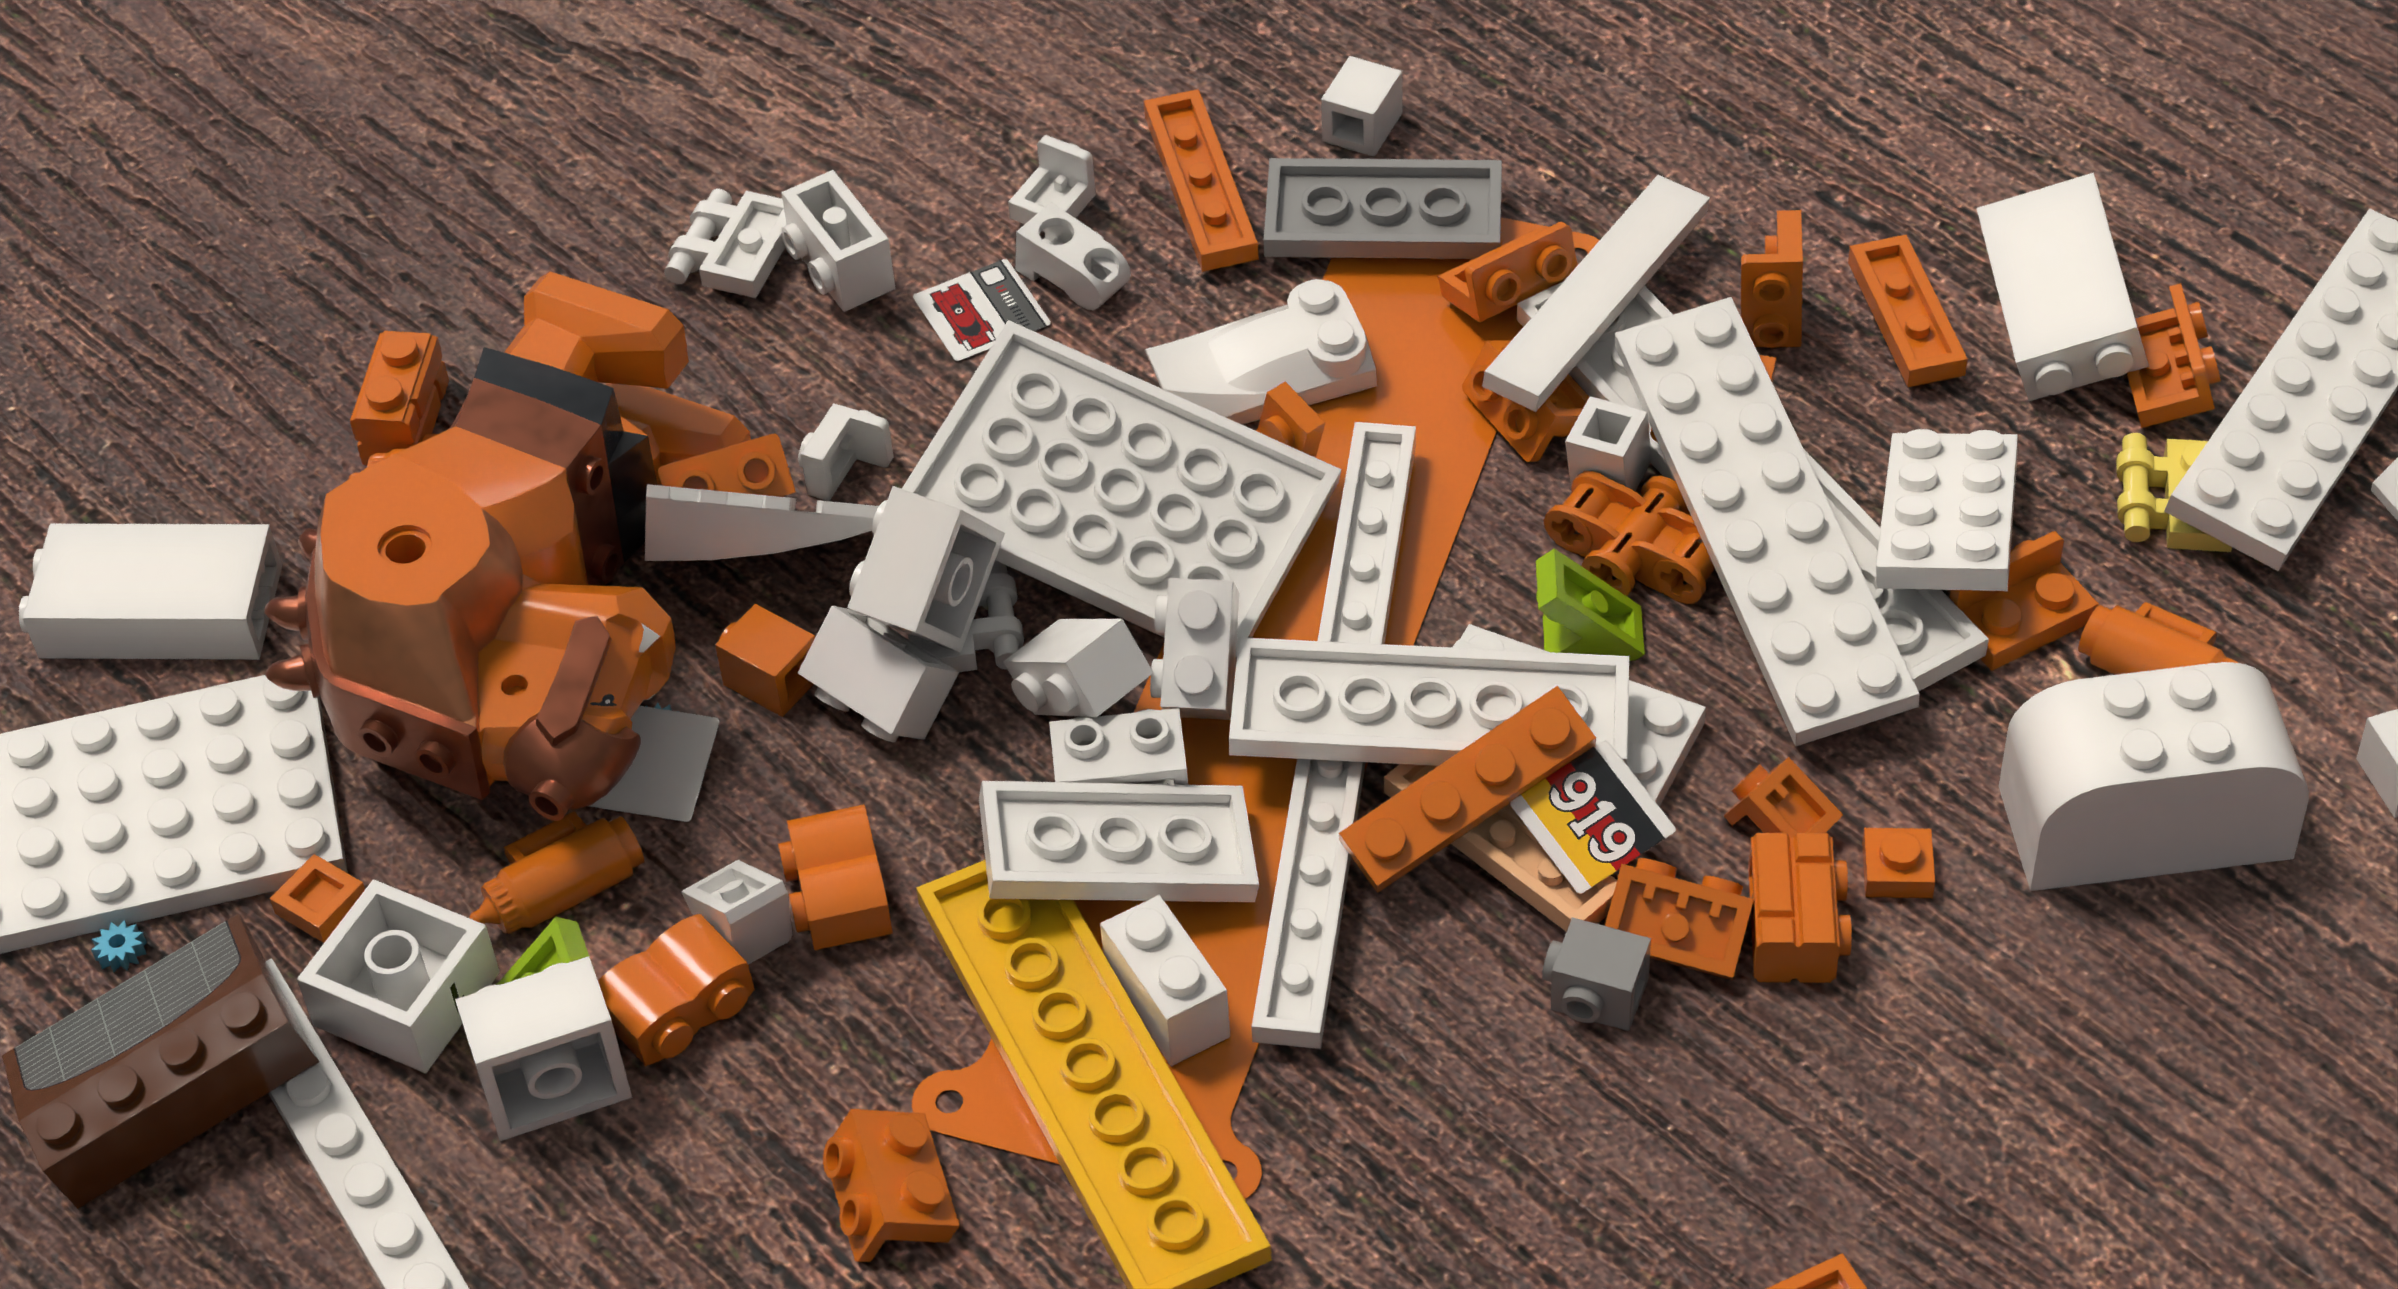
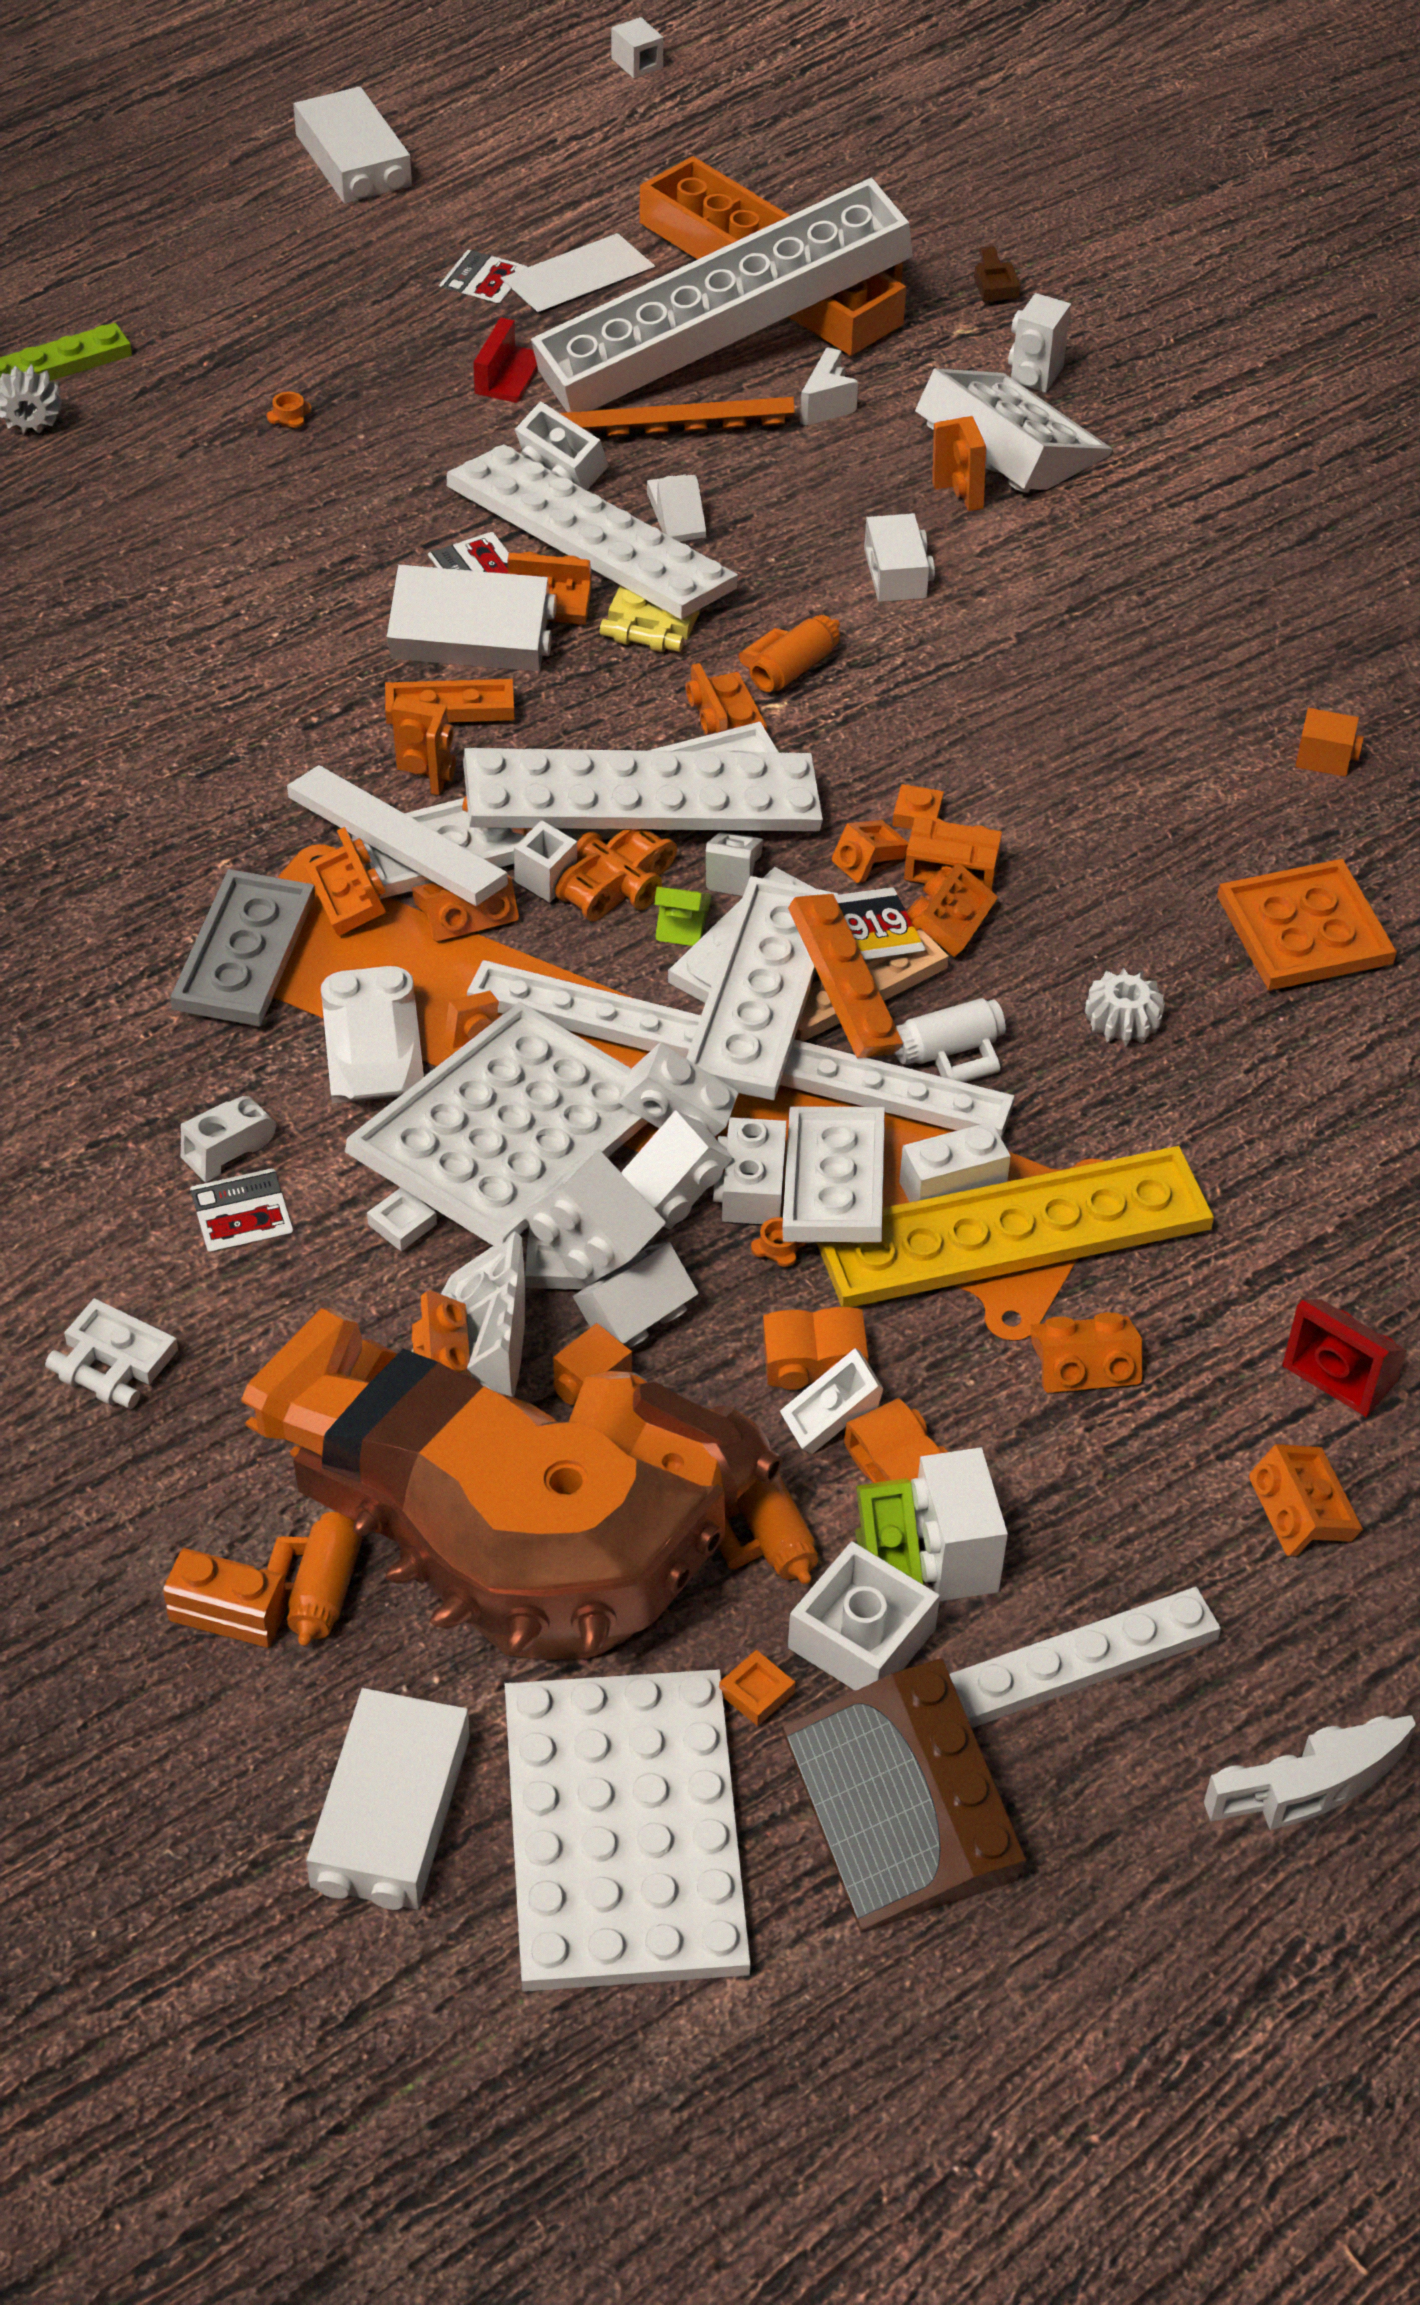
camera: 85 degrees left, 0 degrees up
(131, 941) = (763, 1853): medium azure piece -> none
(836, 445) = (380, 1304): white bracket -> none
(837, 241) = (160, 1270): white brick -> none
(1062, 178) = (142, 1133): white bracket -> none
(1201, 180) = (163, 1048): orange plate -> none
(1361, 106) = (127, 940): white brick -> none
(1432, 949) = (952, 1032): none -> white piece
(1544, 1156) = (1124, 1007): none -> white gear
(1598, 973) = (987, 955): light grey brick -> none
(1699, 645) = (731, 862): none -> white slope
(1948, 511) = (654, 711): white plate -> none
(2151, 776) = (908, 671): white brick -> none
(2230, 290) = (479, 553): none -> sticker

